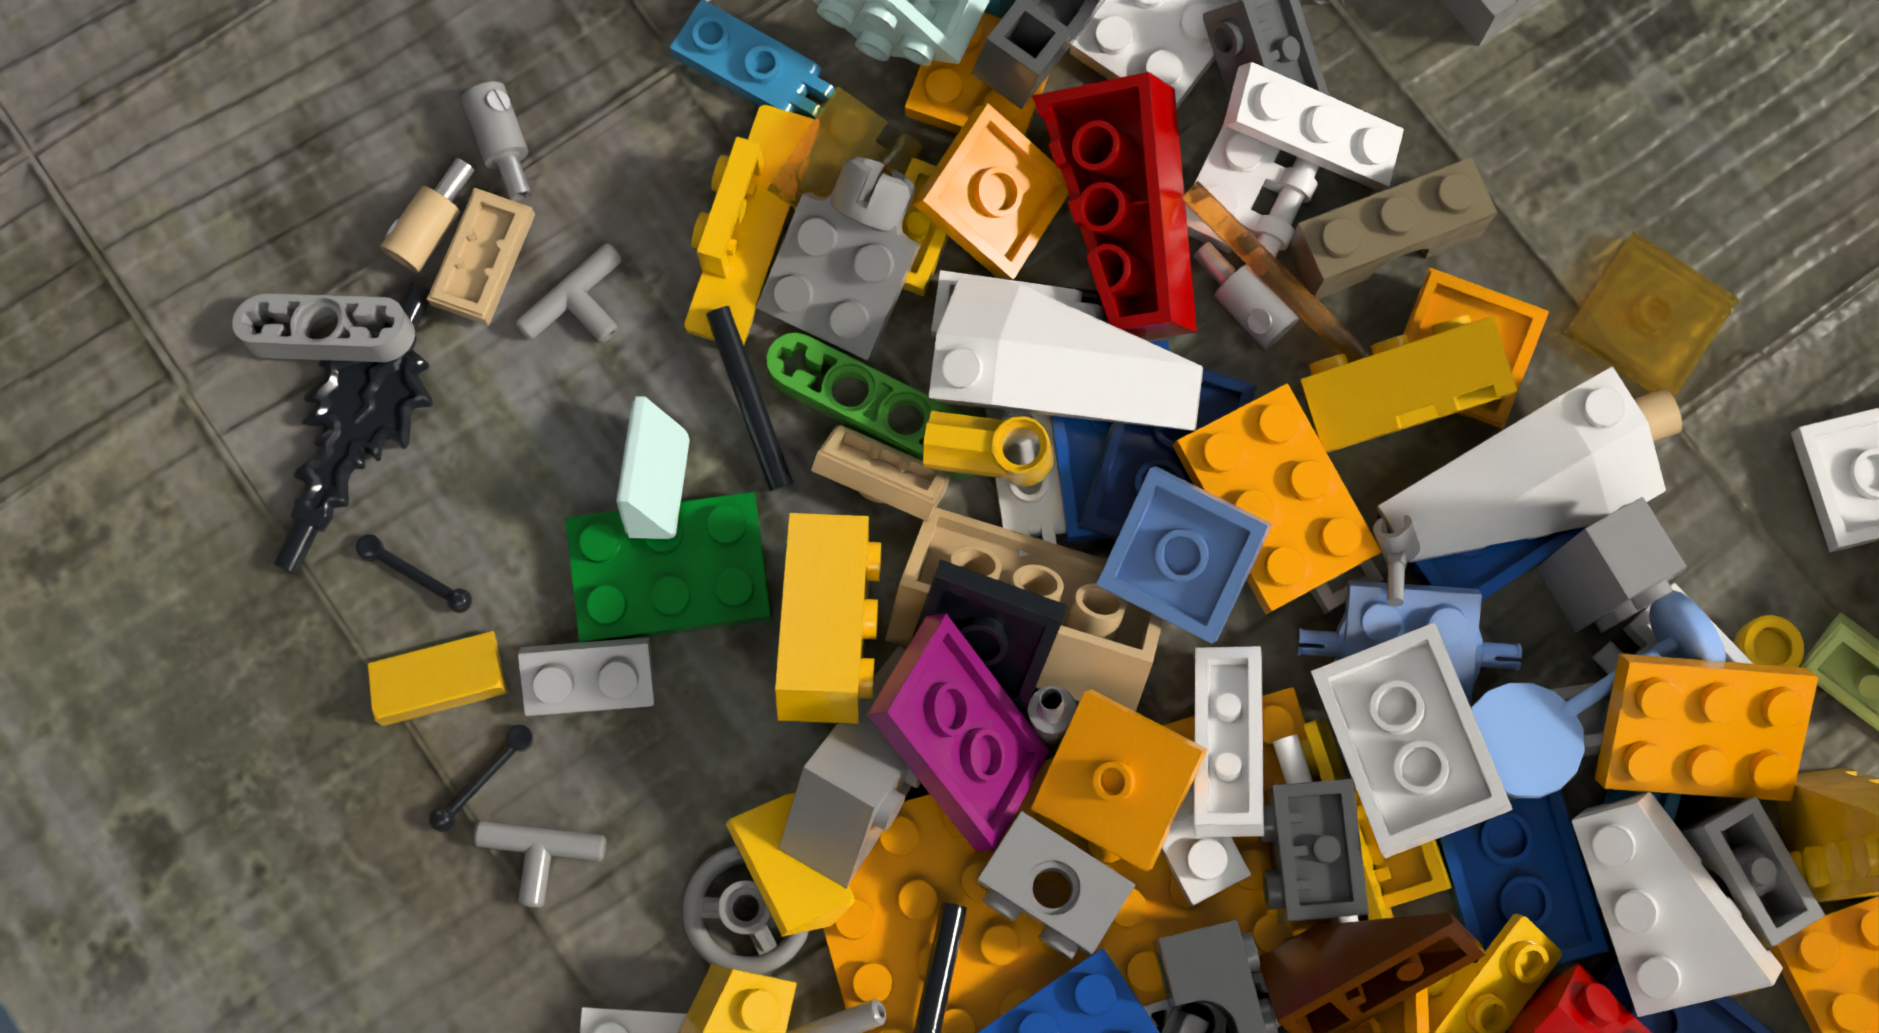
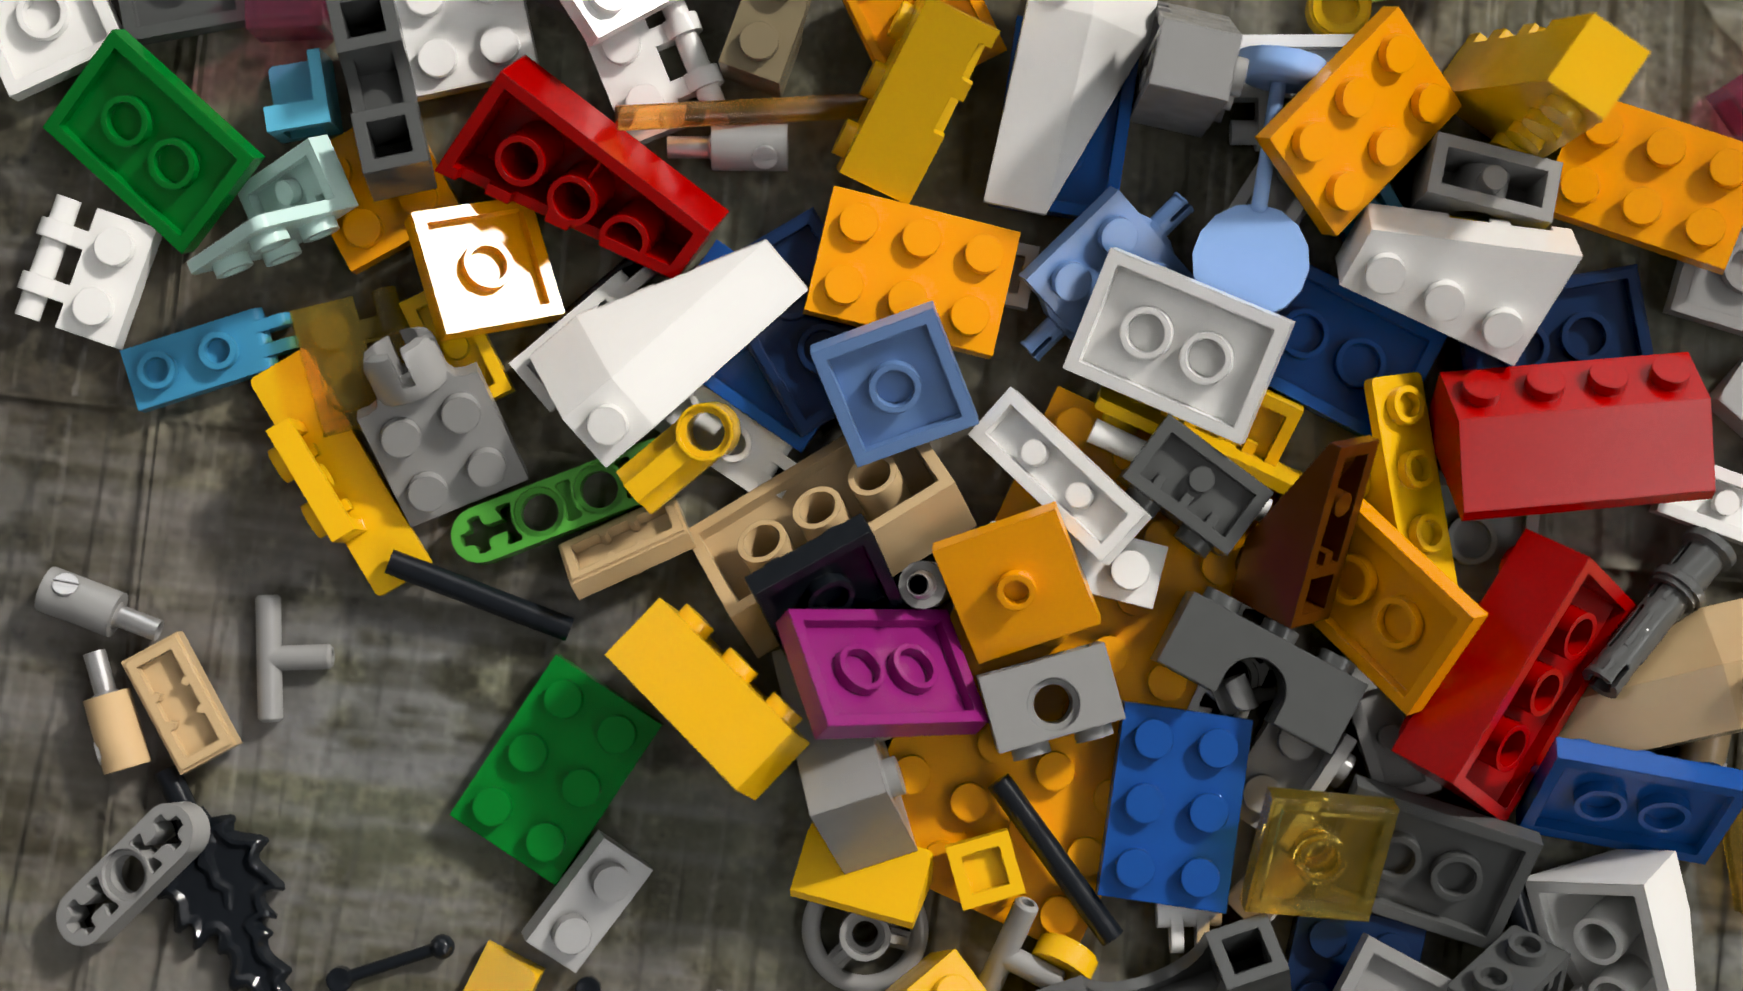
camera: 50 degrees left, 10 degrees up
(652, 472) = (474, 721): light aqua slope -> none
(877, 953) = (985, 869): none -> yellow plate
(1396, 550) = (1031, 221): light grey hand -> none

